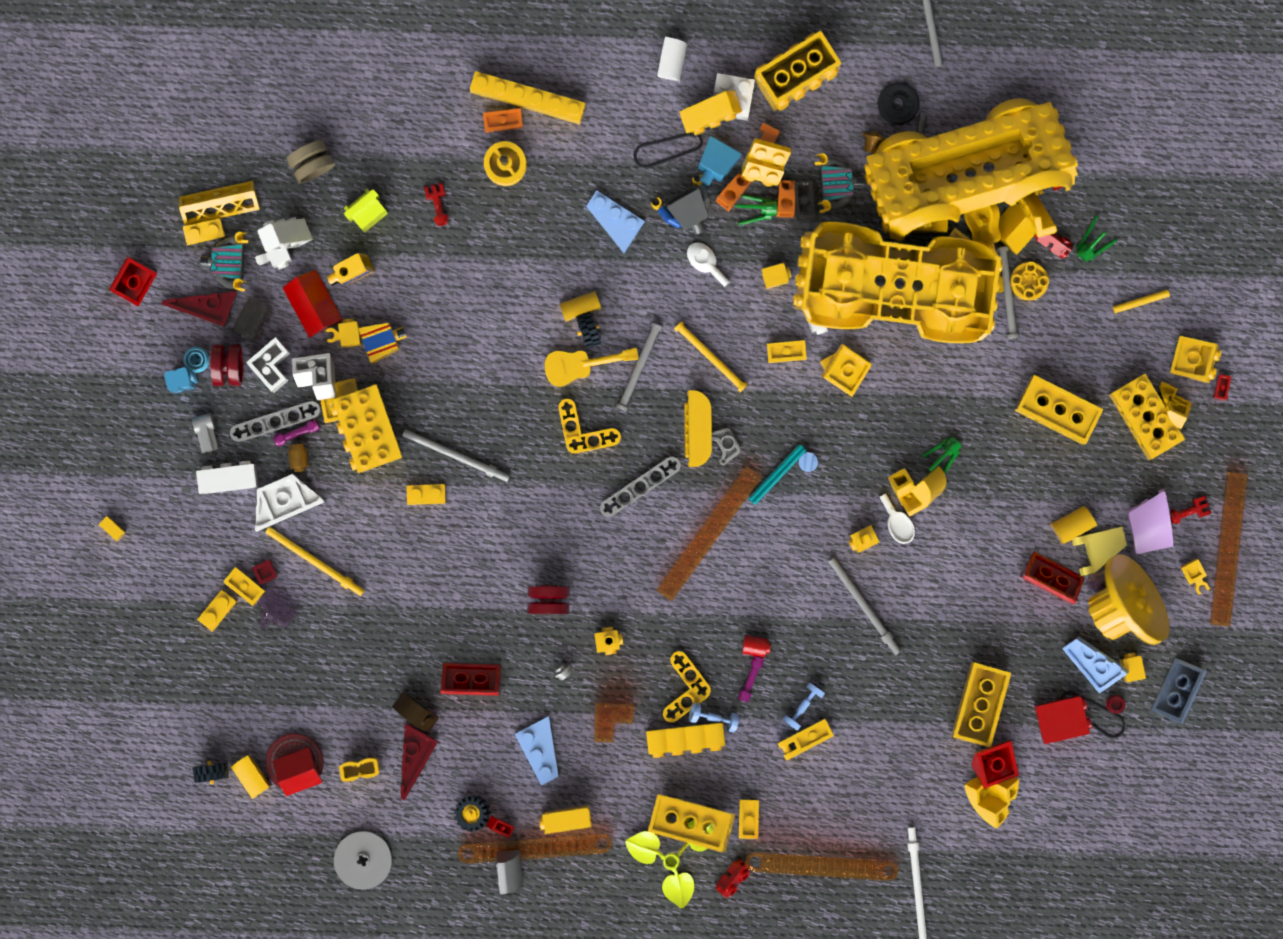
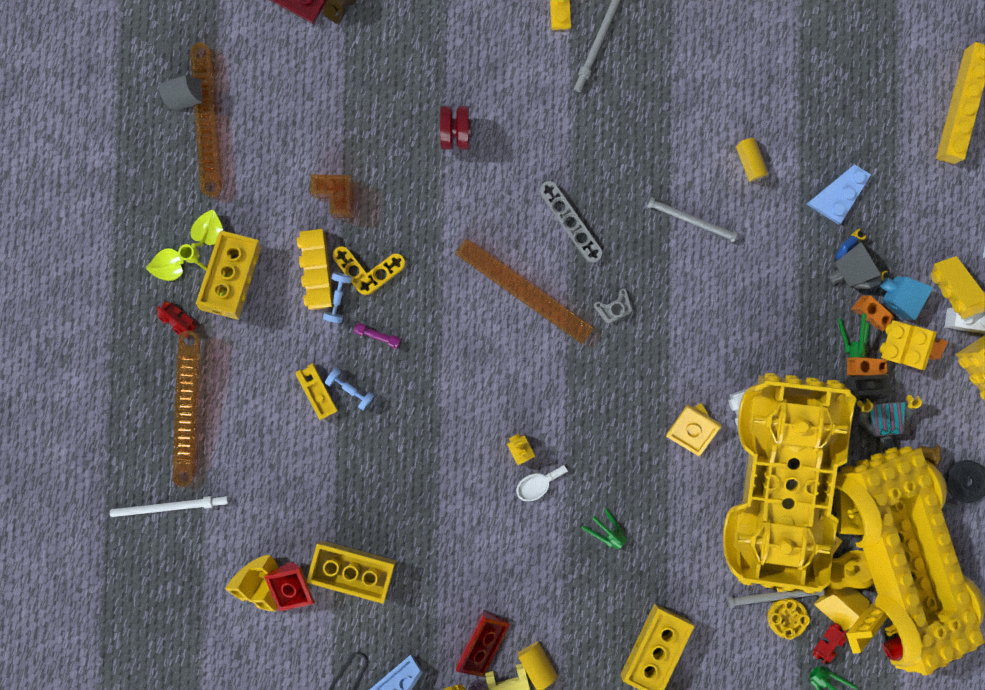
camera: 85 degrees right, 0 degrees up
(441, 218) = (839, 18): red hinge -> none
(470, 679) = (374, 54): red slope -> none
(472, 813) = (240, 57): black wheel -> none
(500, 826) = (227, 84): red piece -> none
(502, 120) = (939, 79): orange plate -> none
(505, 163) = (897, 80): yellow wheel -> none
(539, 749) = (305, 124): light blue wing -> none
(562, 671) = (383, 145): light grey plate -> none
(566, 367) = (690, 145): yellow piece -> none
(566, 819) = (232, 148): yellow brick -> none
(576, 434) = (622, 158): yellow beam -> none
(588, 330) = (730, 165): black wheel -> none
(602, 646) = (414, 183): yellow brick -> none
(671, 158) = (922, 245): black piece -> none
(697, 428) = (631, 279): yellow brick -> none
(705, 261) = (800, 285): white piece -> none
(710, 356) = (733, 260): yellow bar -> none
(748, 819) = (235, 334): yellow plate -> none
(756, 646) = (410, 340): red brick -> none
(776, 275) = (788, 357): yellow brick -> none
(776, 475) = (585, 360): teal axle -> none
(786, 351) = (710, 368): yellow plate -> none
(808, 462) = (598, 391): light blue plate -> none
(886, 637) = (421, 473): light grey bar -> none
(902, 486) = (569, 492): yellow brick -> none
(930, 486) = (575, 517): yellow brick -> none
(1062, 719) = (337, 656): red brick -> none

